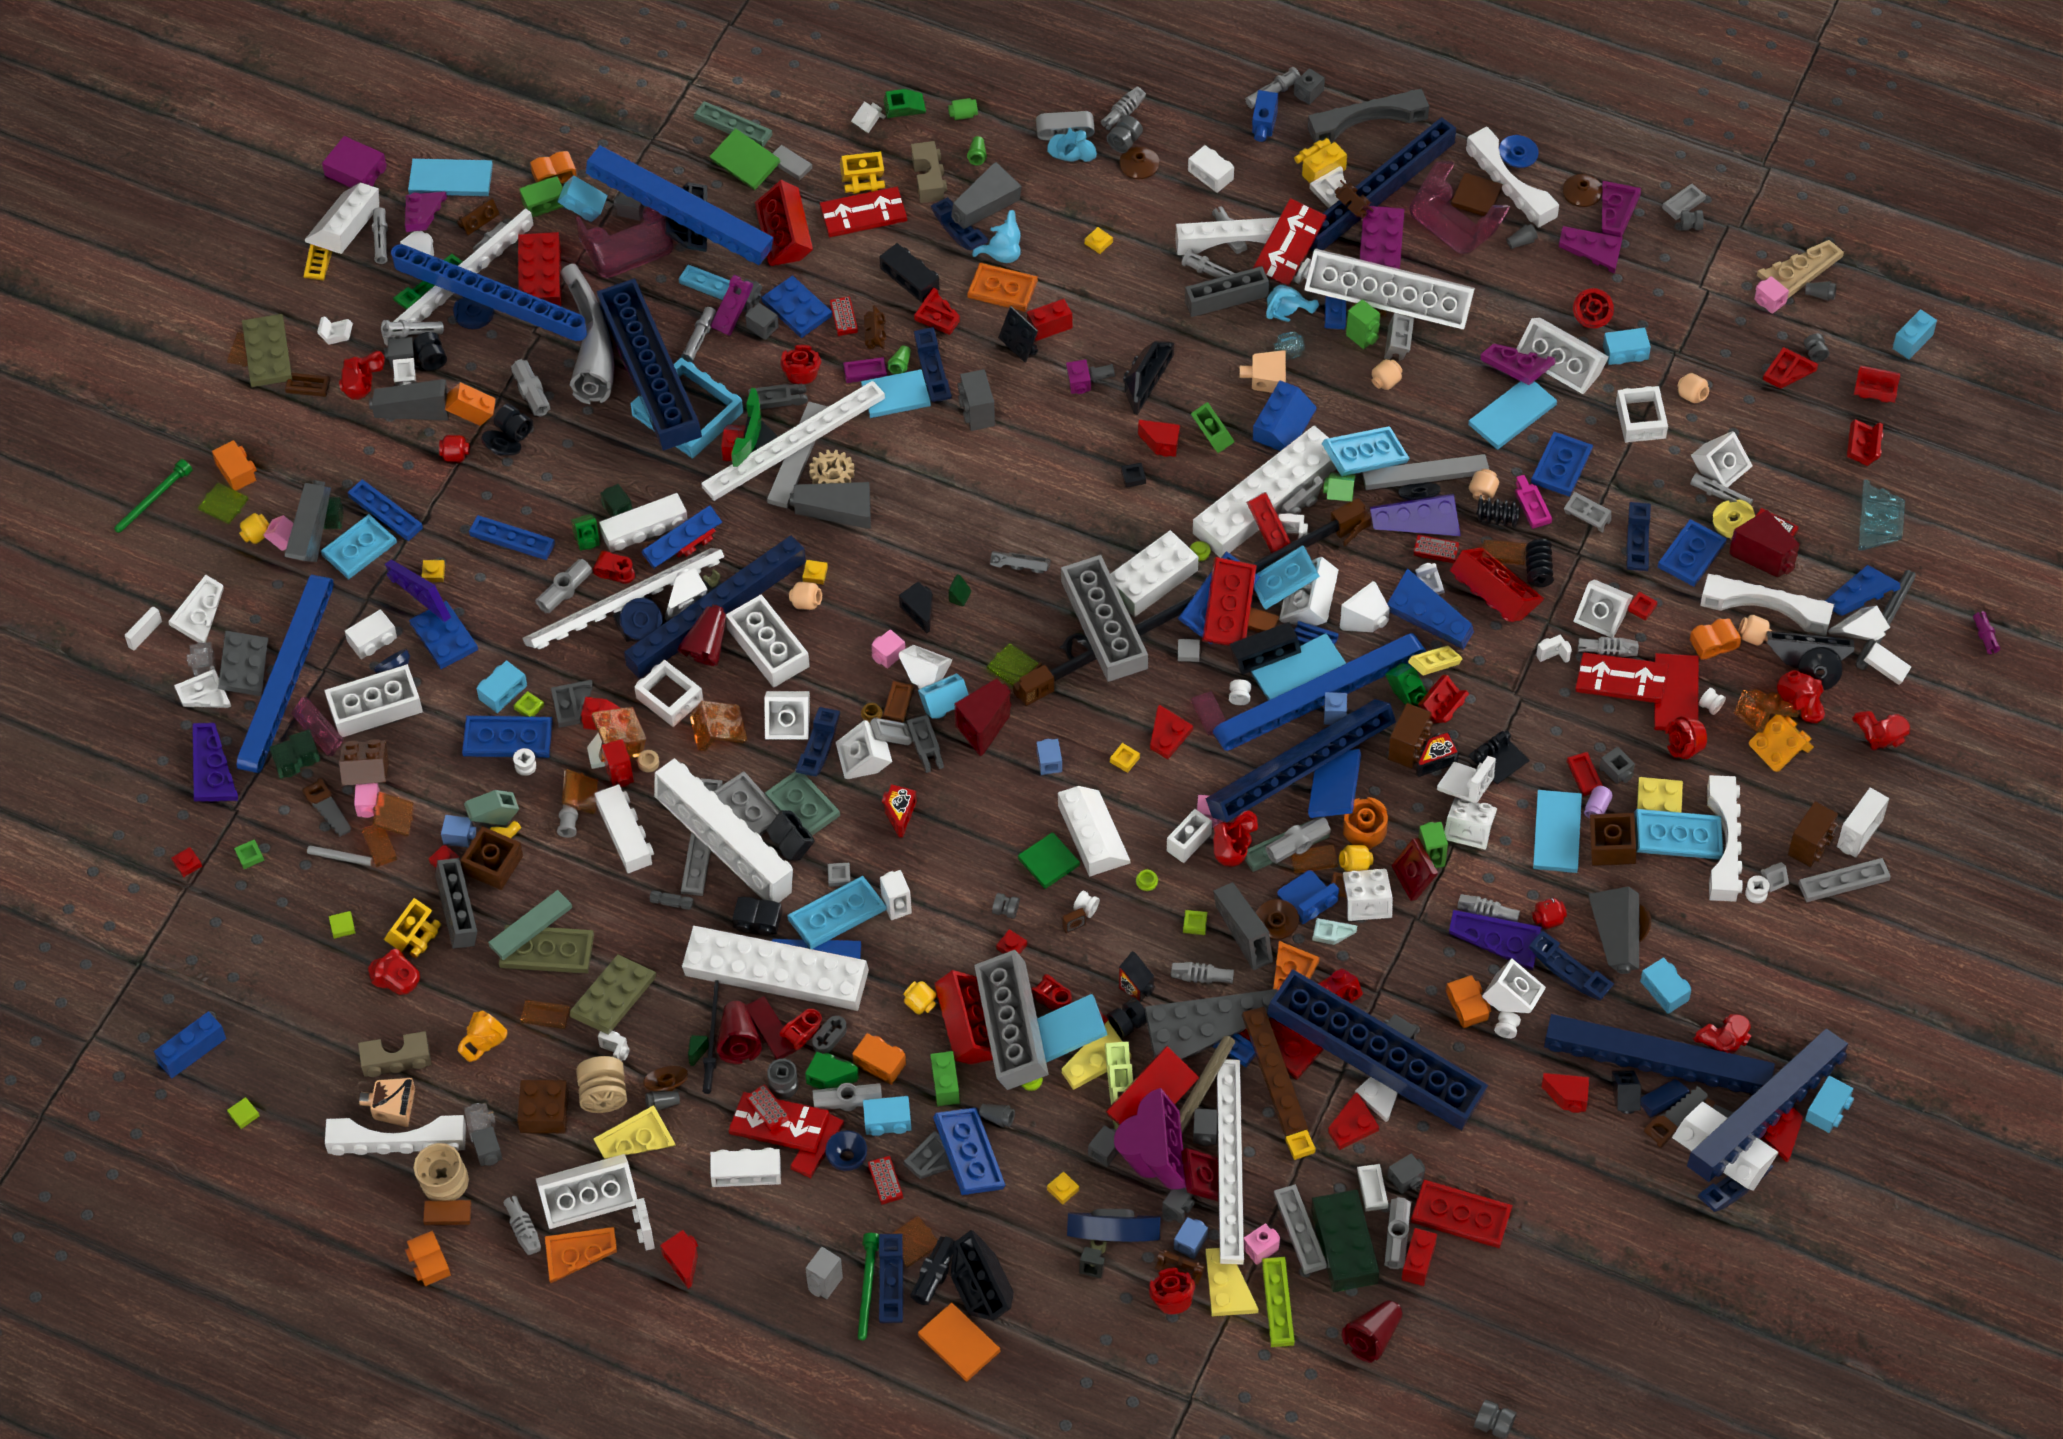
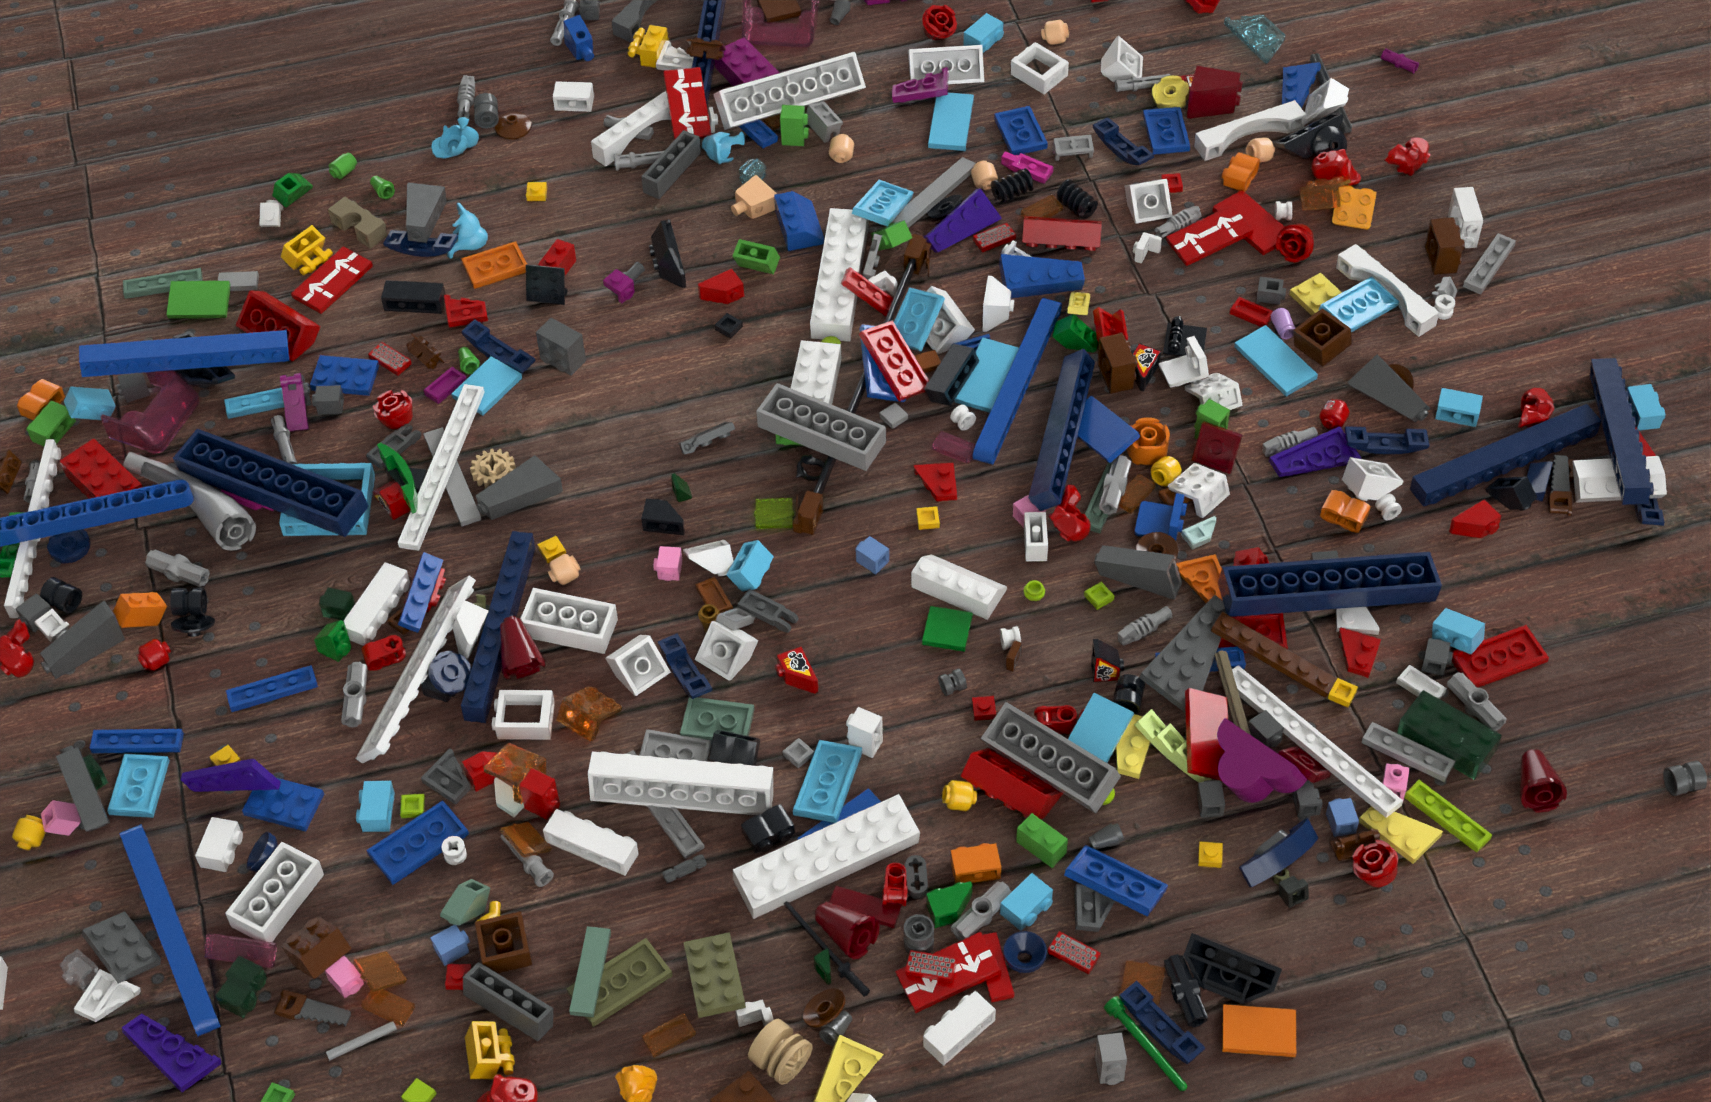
camera: 40 degrees left, 5 degrees down
(198, 610) = (36, 933): white wing -> none
(403, 328) = (23, 591): light grey pin -> none
(648, 761) = (560, 776): tan tile -> none
(983, 714) = (794, 559): dark red slope -> none
(1058, 123) = (423, 136): light grey beam -> none
(1334, 707) = (1042, 382): medium blue brick -> none
(1419, 1257) = (1512, 705): red brick -> none
(1444, 1167) = (1459, 630): none -> medium azure brick
(1887, 663) = (1364, 116): white tile -> none

